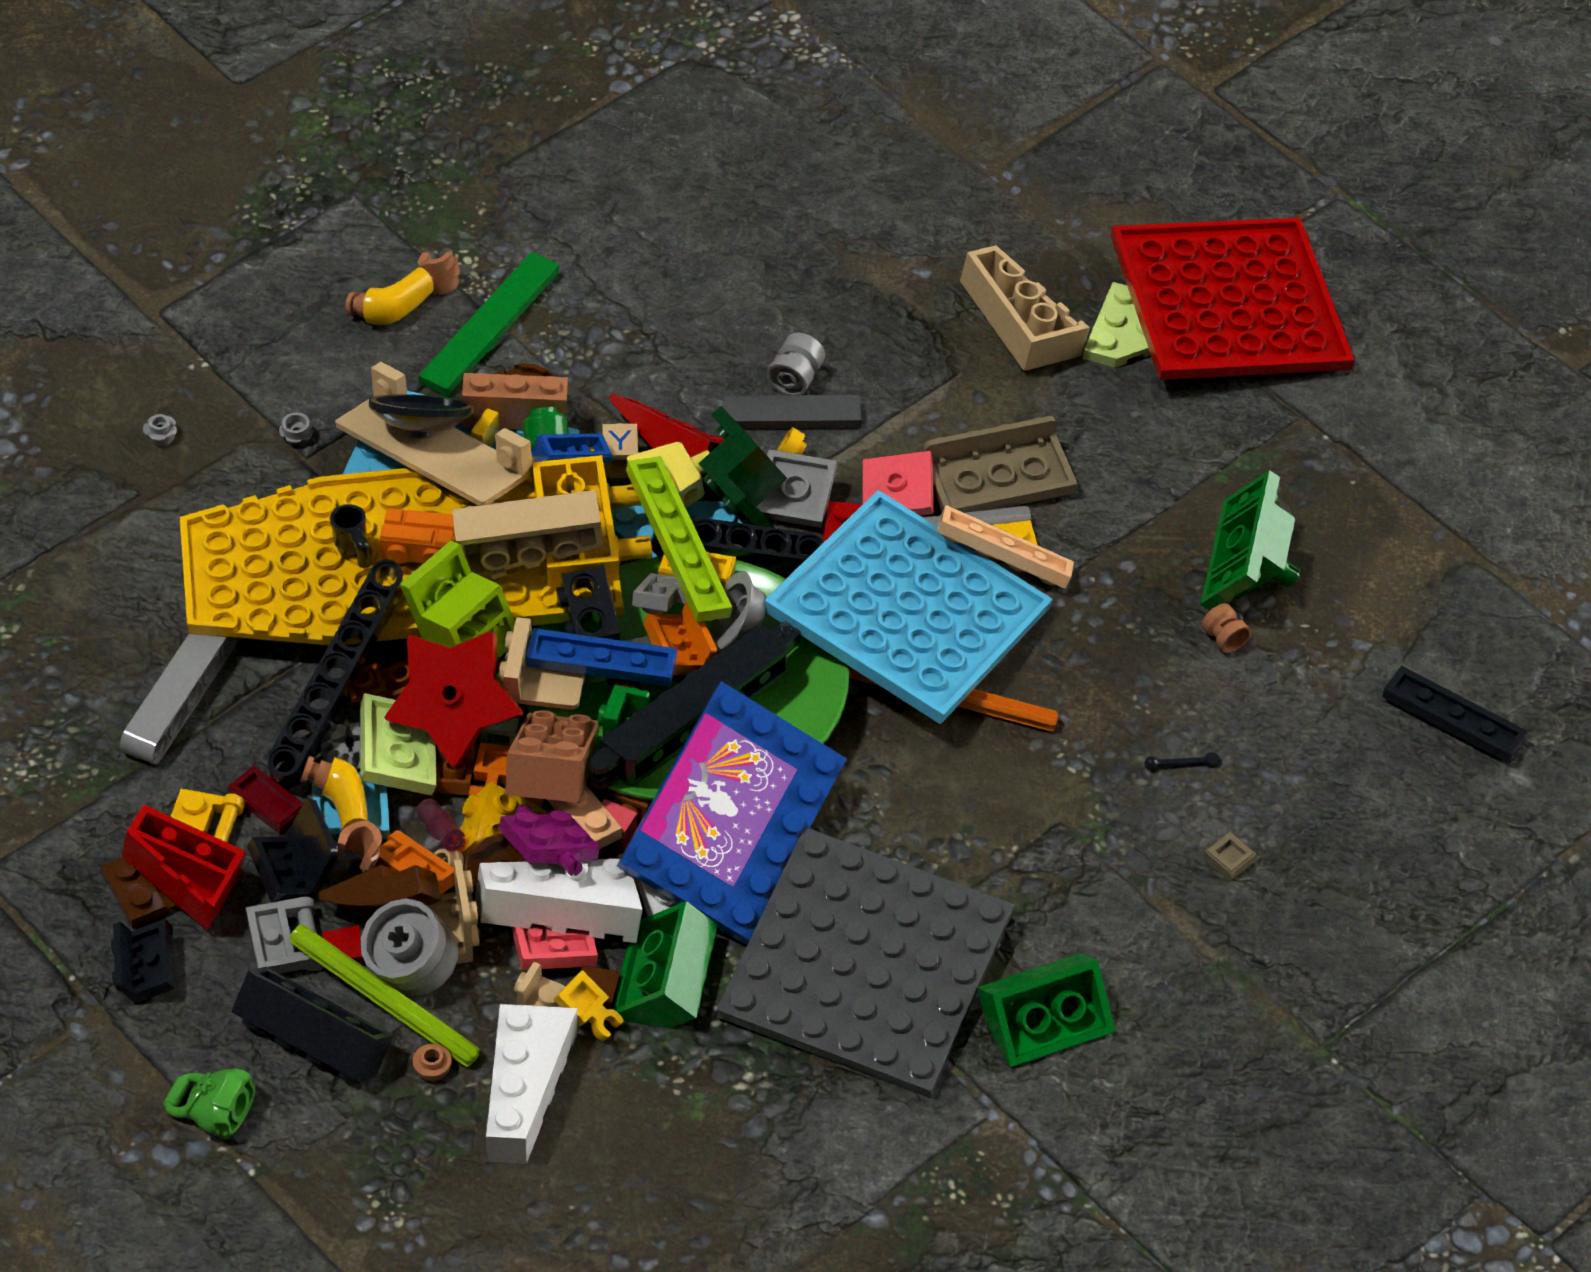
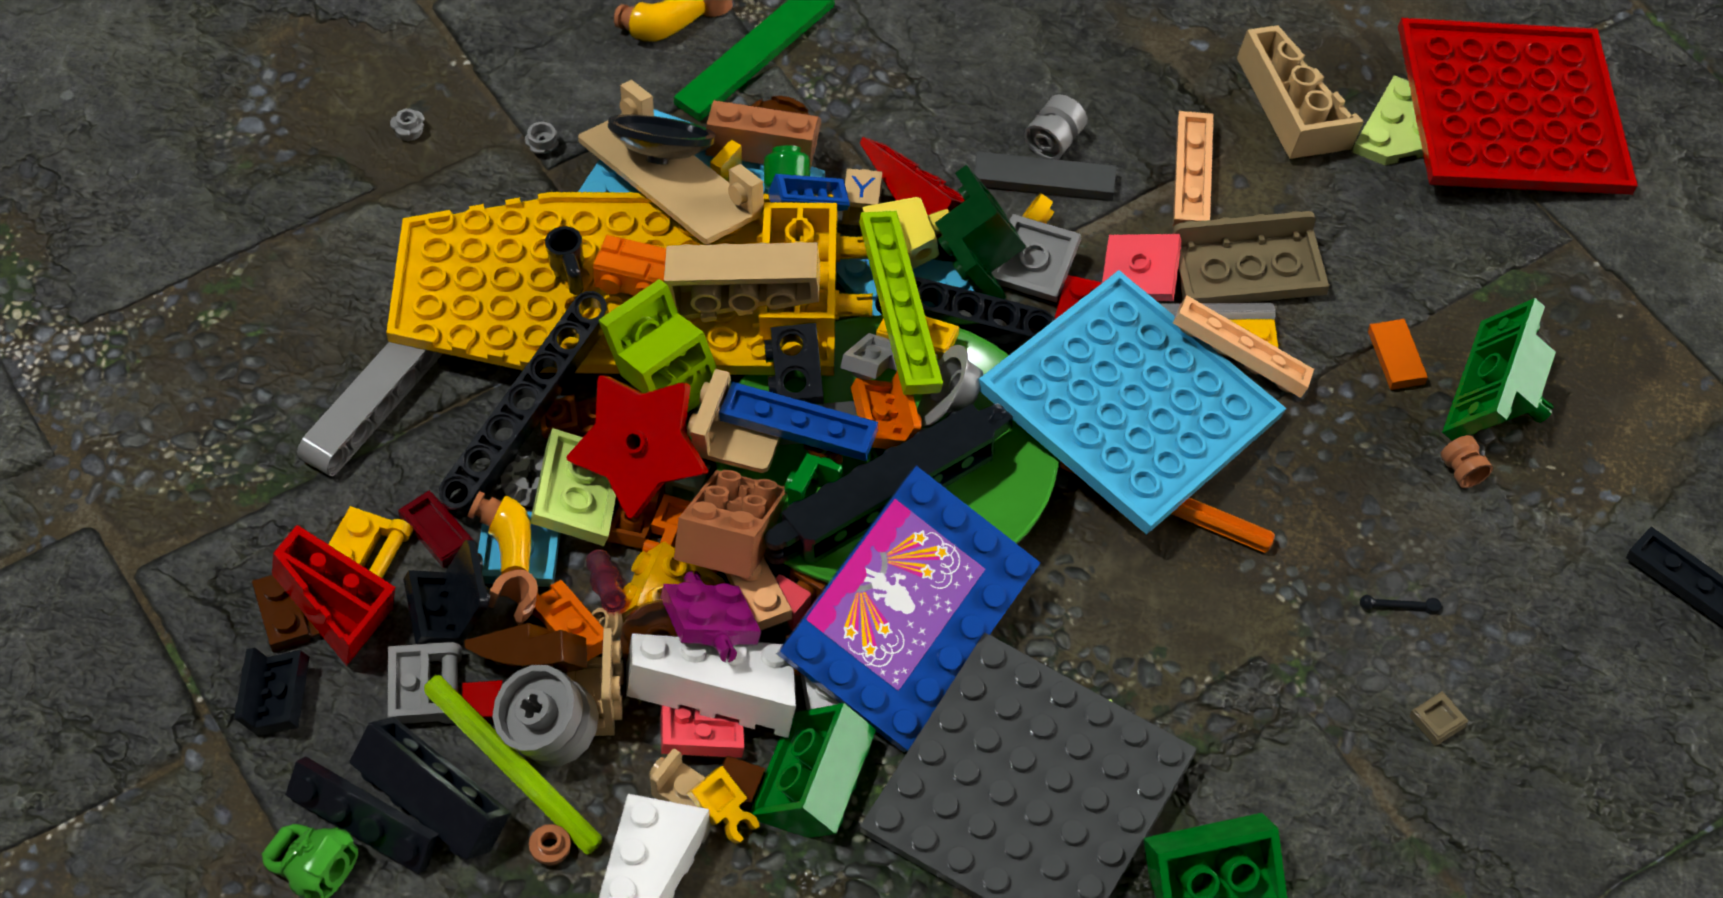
camera: 10 degrees right, 5 degrees up
(259, 1057) = (362, 814): none -> black plate
(933, 387) = (1193, 167): none -> light nougat plate
(1150, 539) = (1397, 354): none -> orange tile

